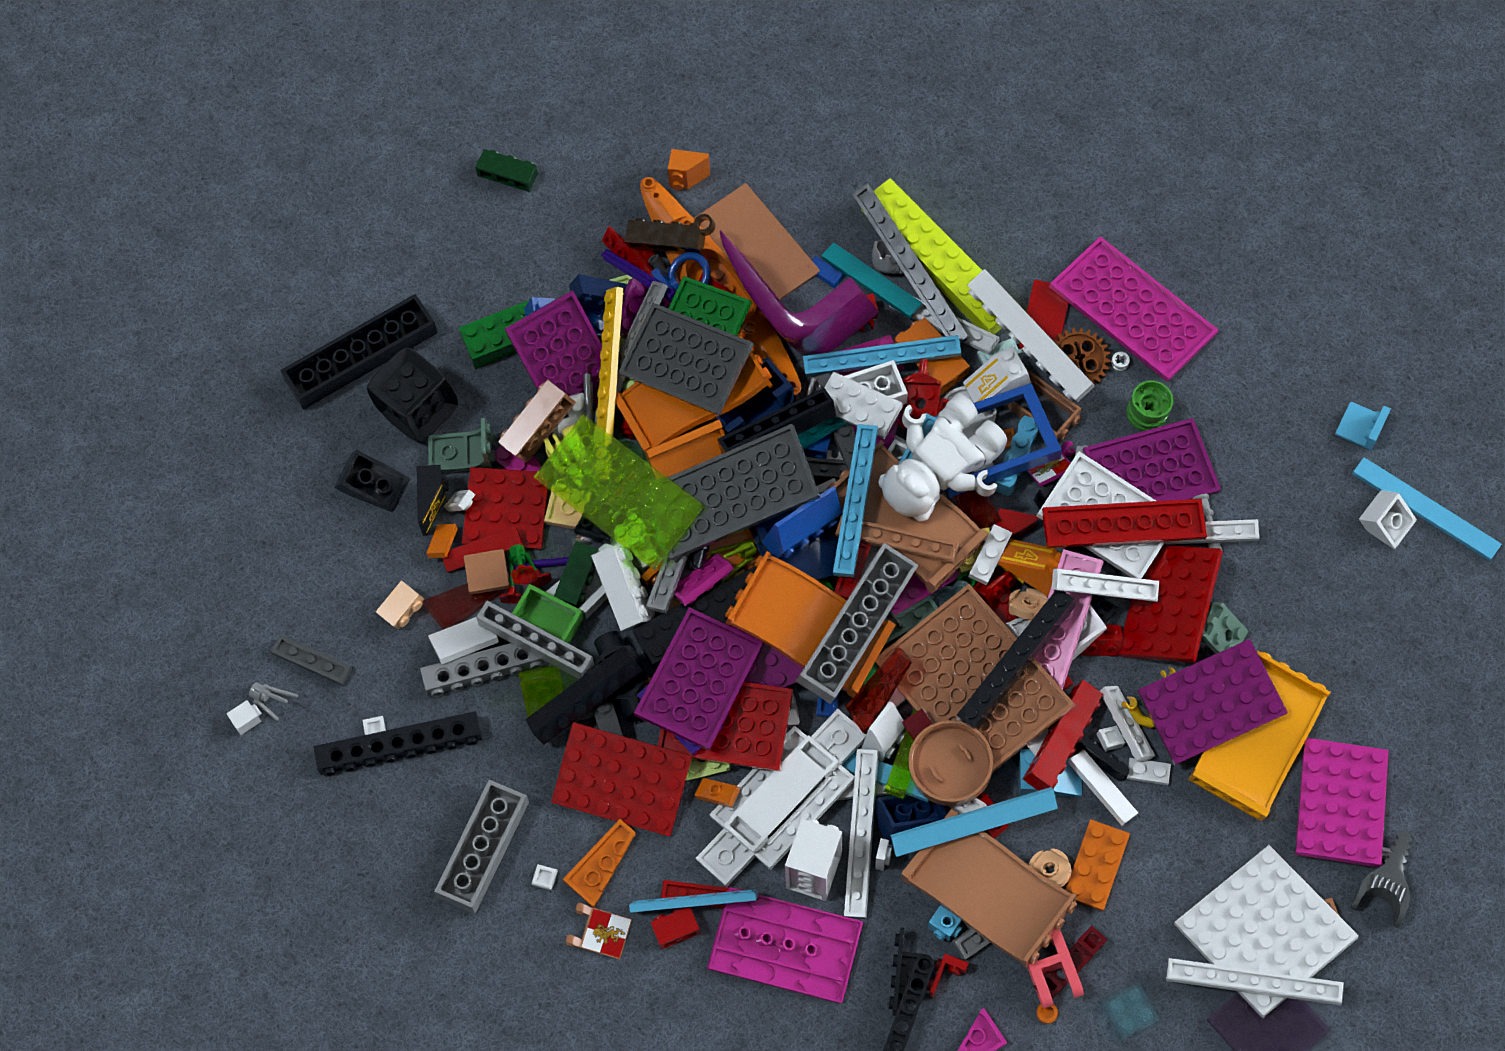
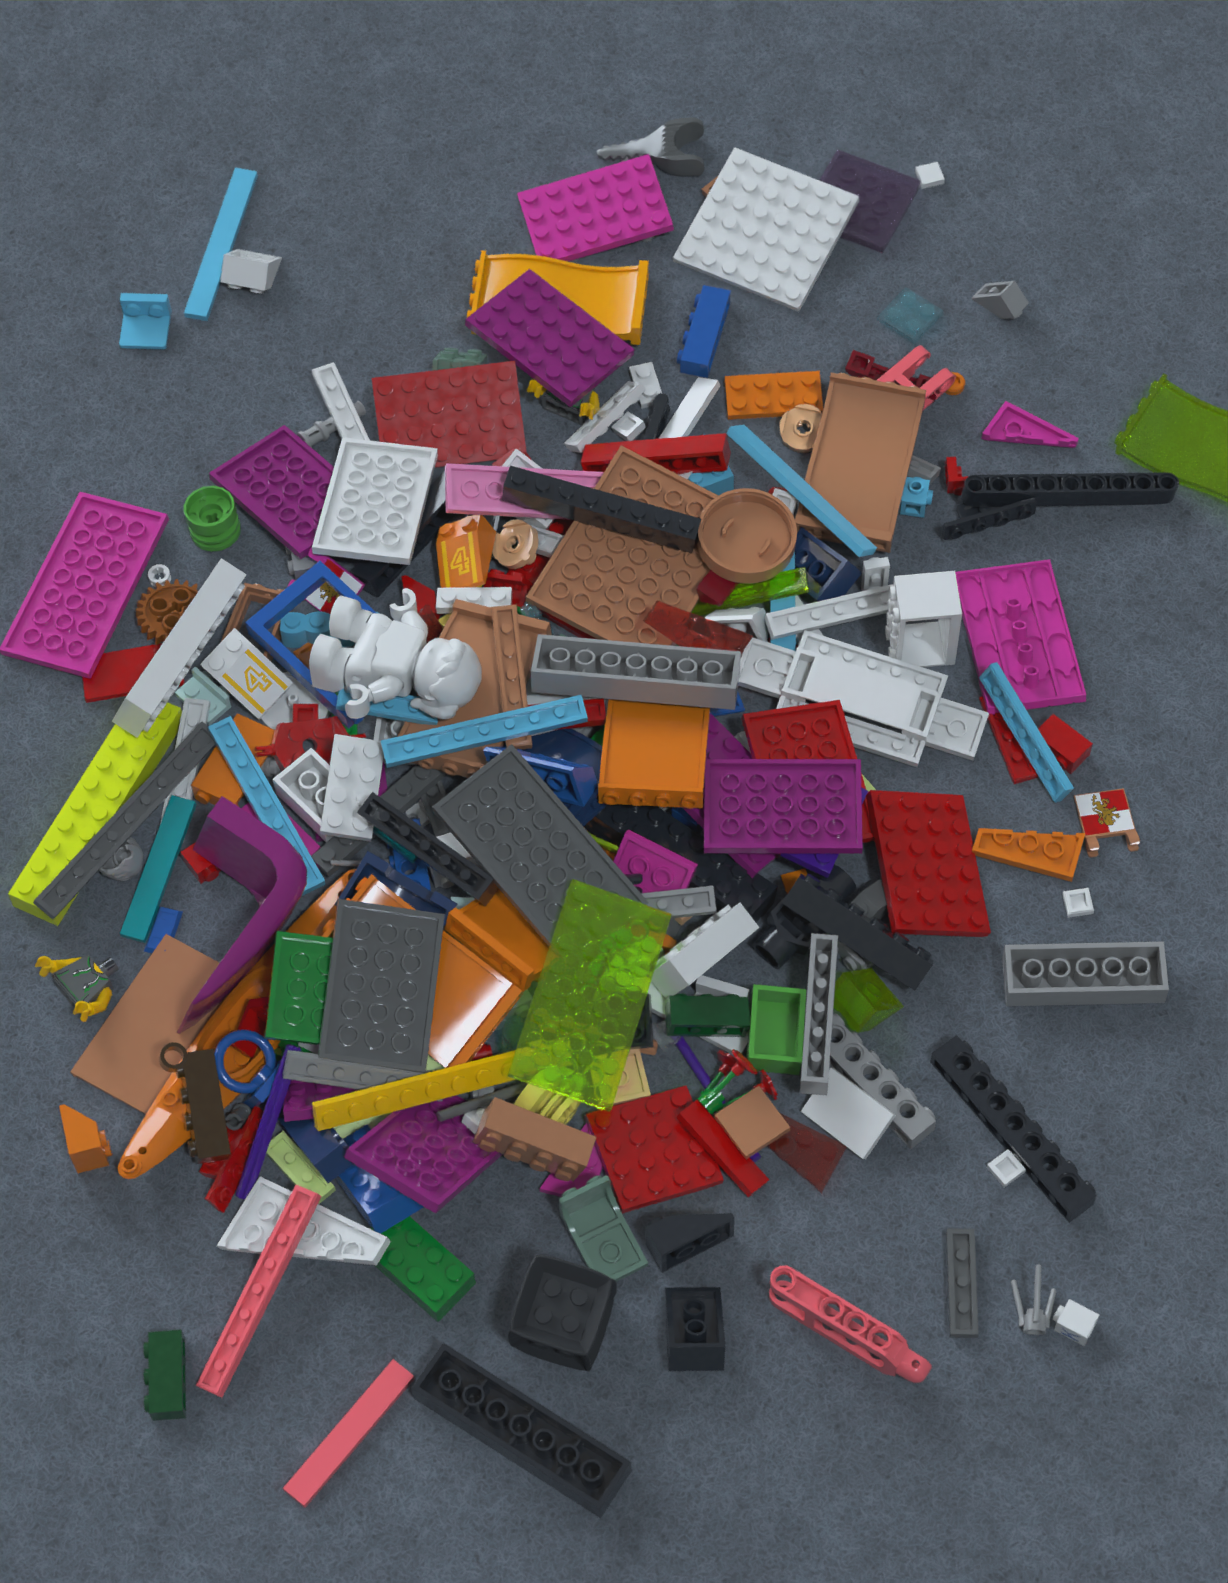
camera: 115 degrees left, 5 degrees down
(344, 553) = (809, 1303): none -> coral piece
(400, 605) = (842, 1206): light nougat brick -> none
(416, 260) = (348, 1433): none -> coral tile
(441, 541) = (735, 1198): orange tile -> none
(460, 501) = (674, 1195): white plate -> none
(529, 234) = (258, 1291): none -> coral tile
(558, 270) = (325, 1237): none -> white wing
(717, 792) = (889, 765): orange plate -> none
(803, 207) = (81, 982): none -> torso
(1105, 585) = (472, 455): white tile -> none
(1124, 523) = (382, 477): red plate -> none
(1180, 836) = (704, 331): none -> blue brick
(1255, 981) = (830, 211): white tile -> none

